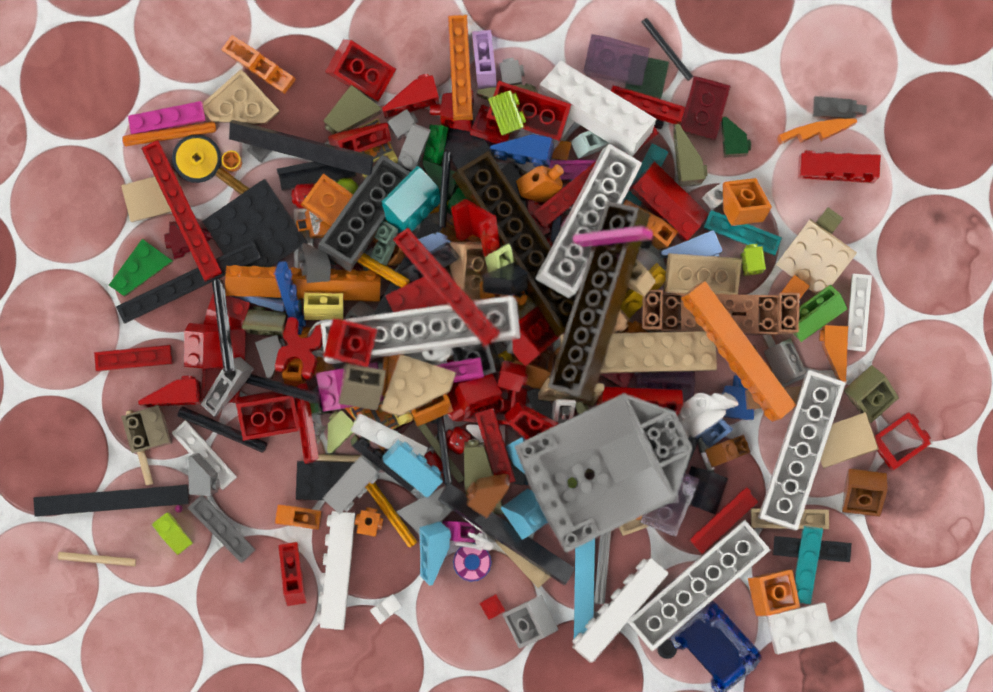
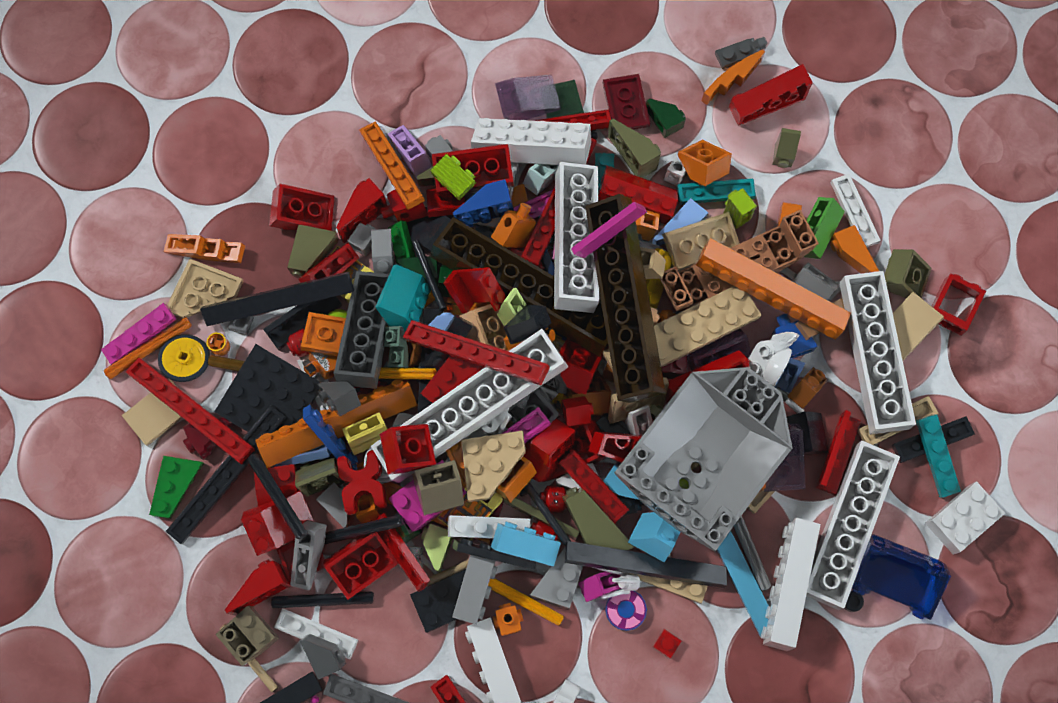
camera: 25 degrees left, 10 degrees down
(133, 358) = (204, 573): red tile -> none
(298, 517) = (436, 649): orange slope -> none
(433, 549) = (584, 615): medium azure slope -> none
(487, 493) = (610, 531): dark orange slope -> none
(530, 621) = (711, 639): light grey slope -> none
(667, 49) = (566, 70): black bar -> none
(773, 593) = (922, 497): orange slope -> none
(816, 257) = (793, 179): tan plate -> none
(864, 492) = (951, 364): dark orange slope -> none

